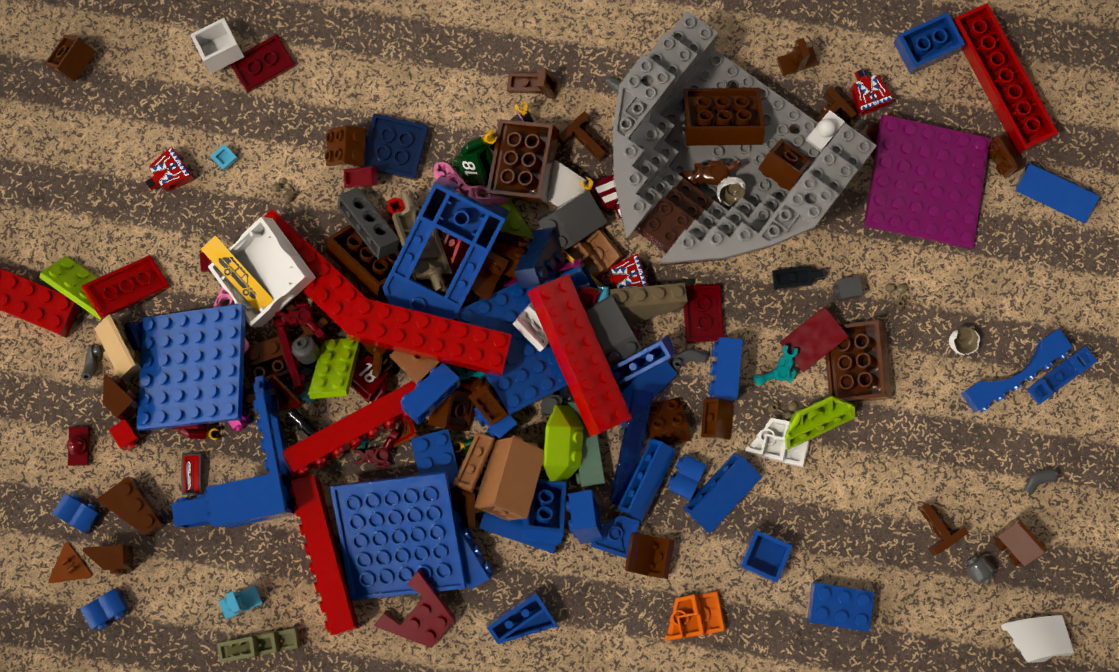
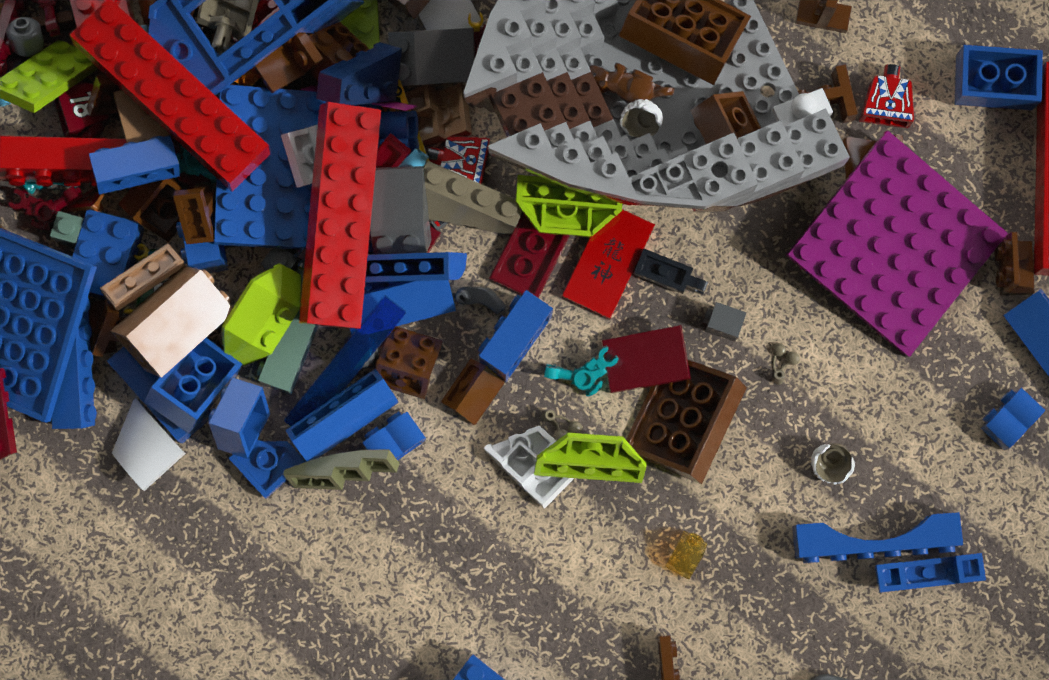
camera: 25 degrees right, 0 degrees up
(404, 458) = (66, 229): none -> sand green brick
(521, 619) = (96, 500): blue wedge -> none
(533, 568) = (145, 447): none -> white slope
(649, 555) = (290, 508): reddish brown bracket -> none
(661, 517) = (333, 470): none -> olive slope
(696, 616) = (307, 615): orange slope -> none
(708, 276) = (562, 210): none -> lime wedge
(722, 492) = (426, 483): blue brick -> none
(754, 290) = (608, 264): none -> red tile
(765, 556) = (431, 588): blue piece -> none
(908, 447) = (687, 554): none -> clear yellow bracket
(1056, 252) = (1012, 418): none -> blue brick

